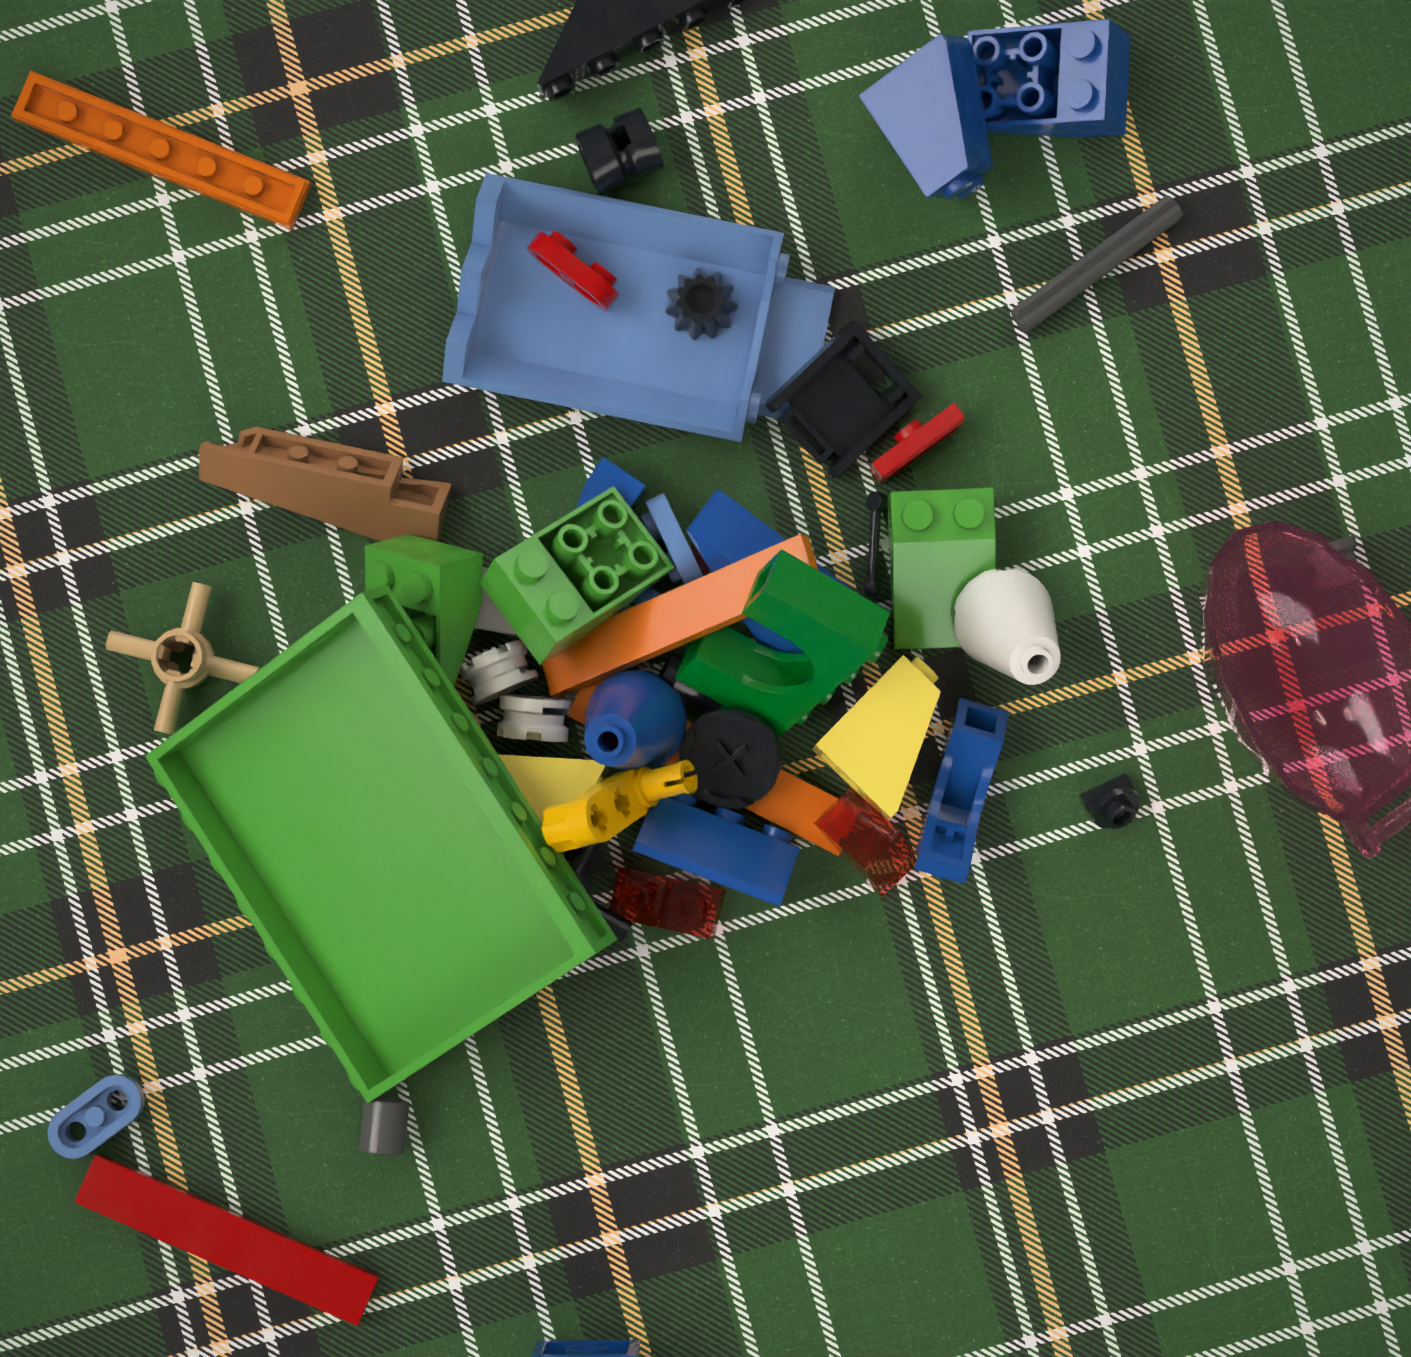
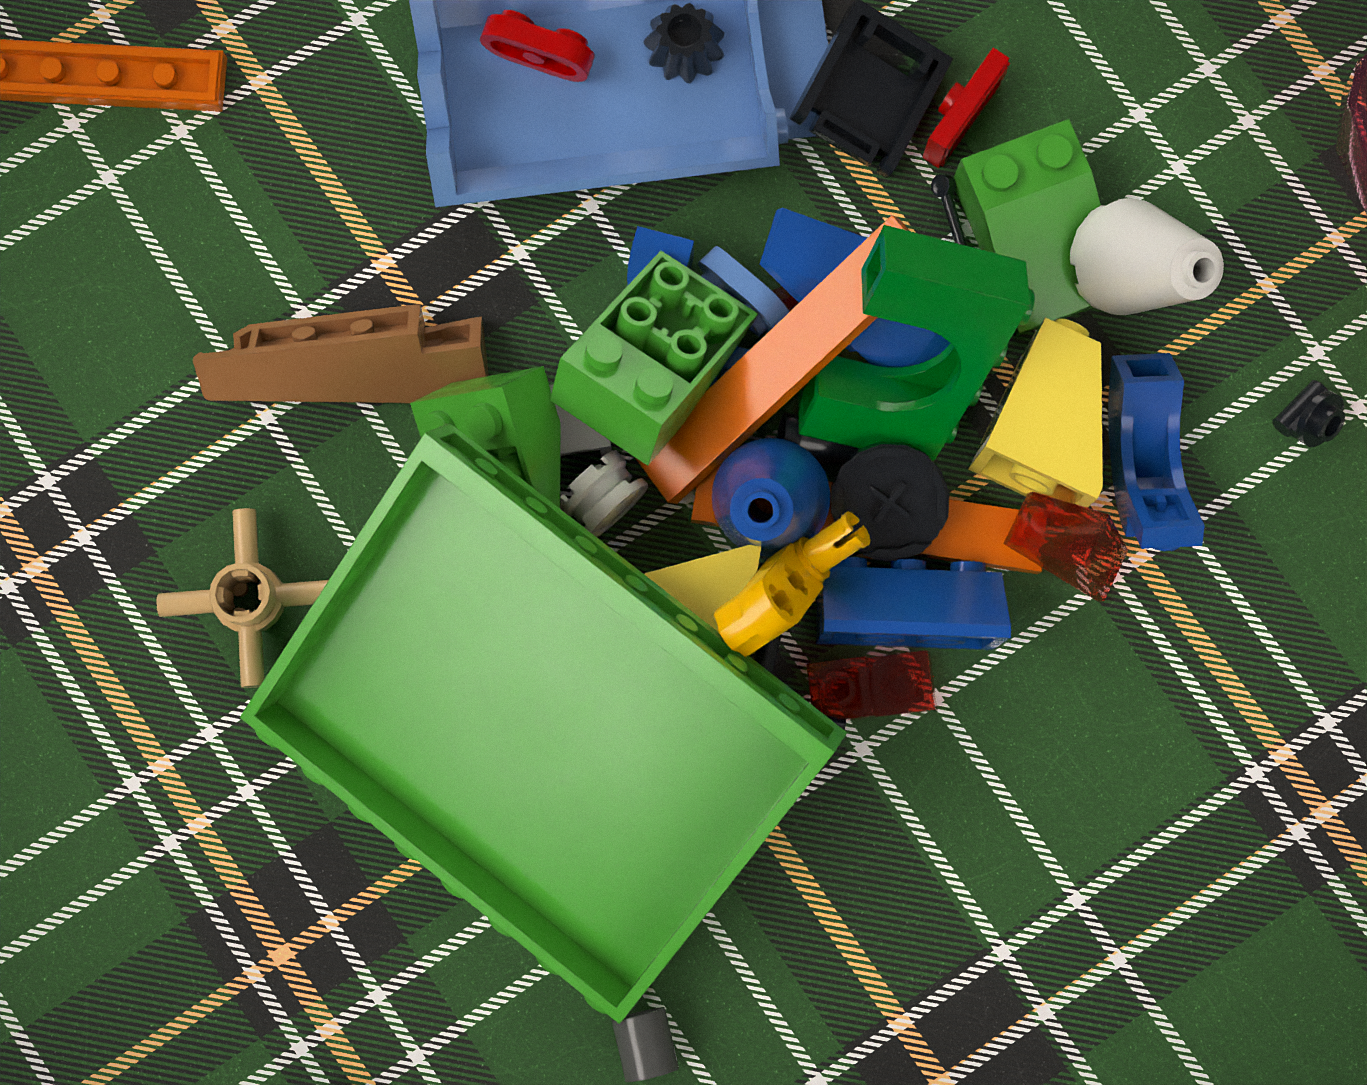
camera: 20 degrees left, 5 degrees down
(533, 718) = (658, 530): white wheel -> none

